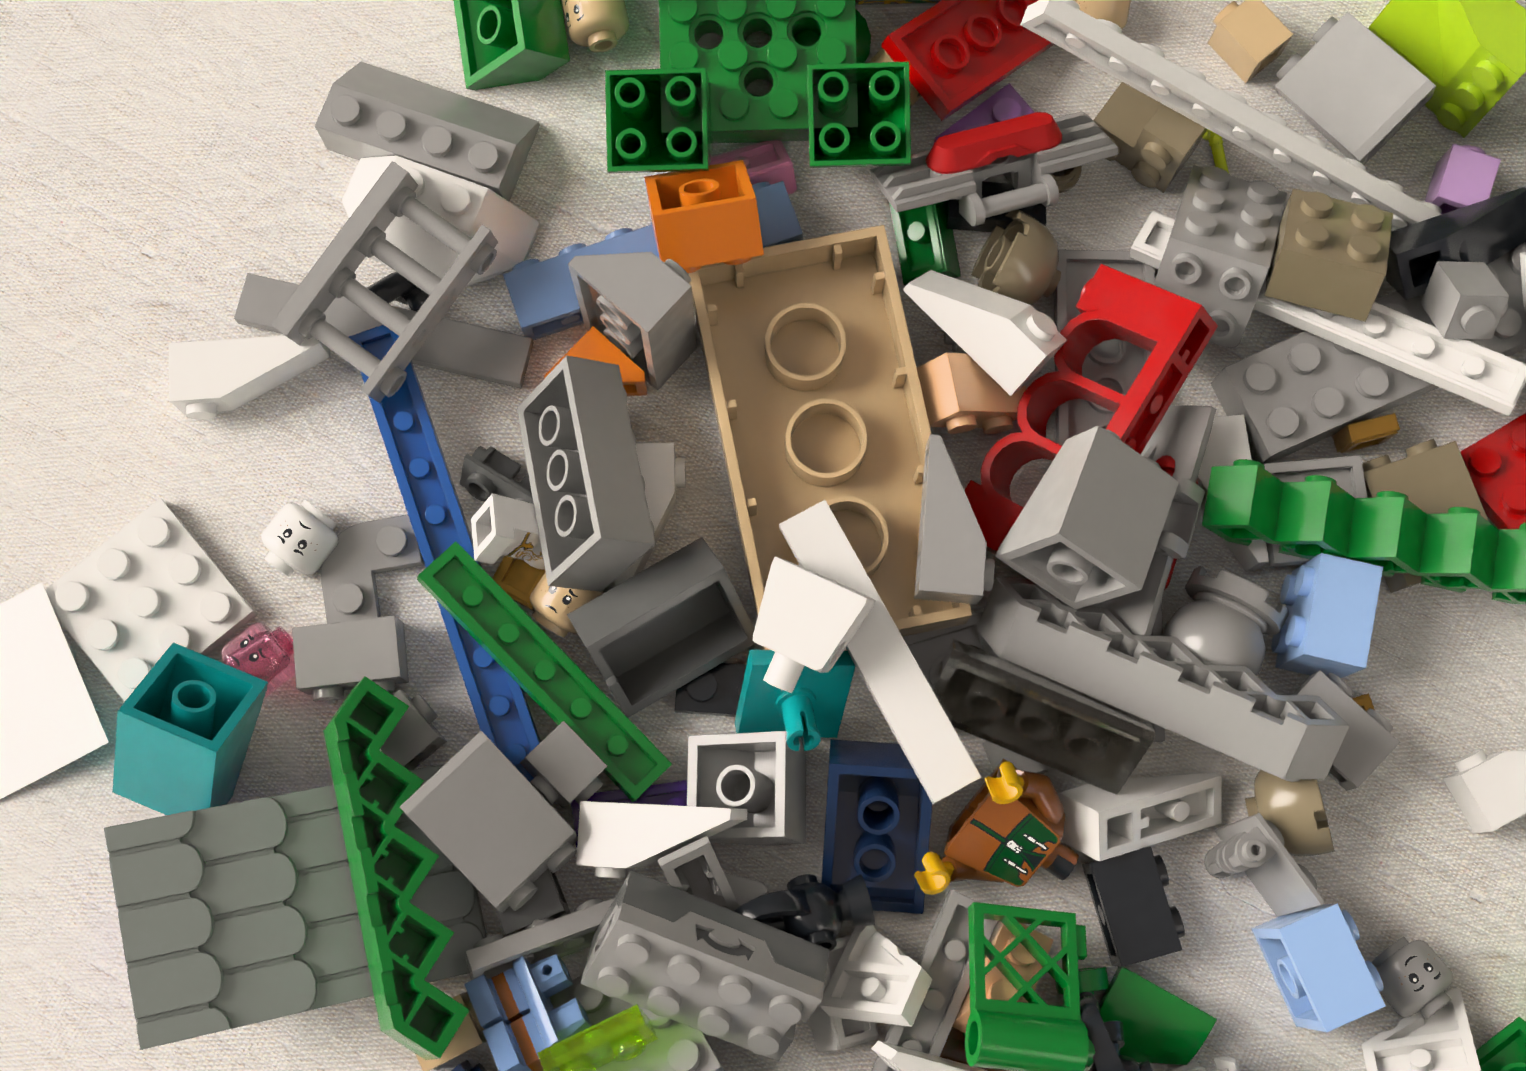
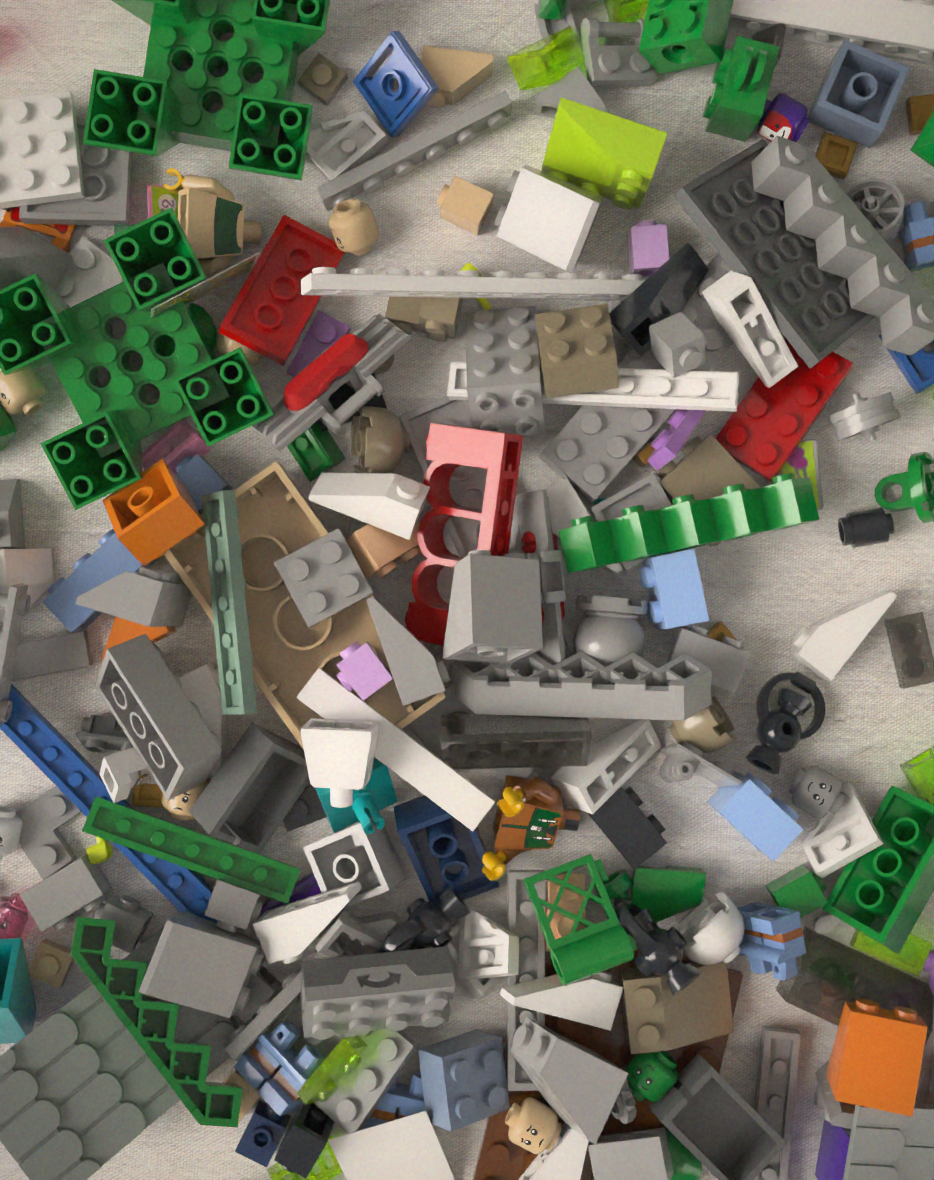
camera: 20 degrees left, 10 degrees up
(284, 744) = (51, 963): none -> tan plate
(419, 626) = (100, 851): none -> neon yellow hand
(747, 369) = (229, 603): none -> sand green plate
(882, 392) = (324, 577): none -> light grey plate
(883, 527) = (362, 670): none -> lavender brick
(1399, 867) = (780, 728): none -> black piece
(1401, 421) = (670, 441): none -> medium lavender plate

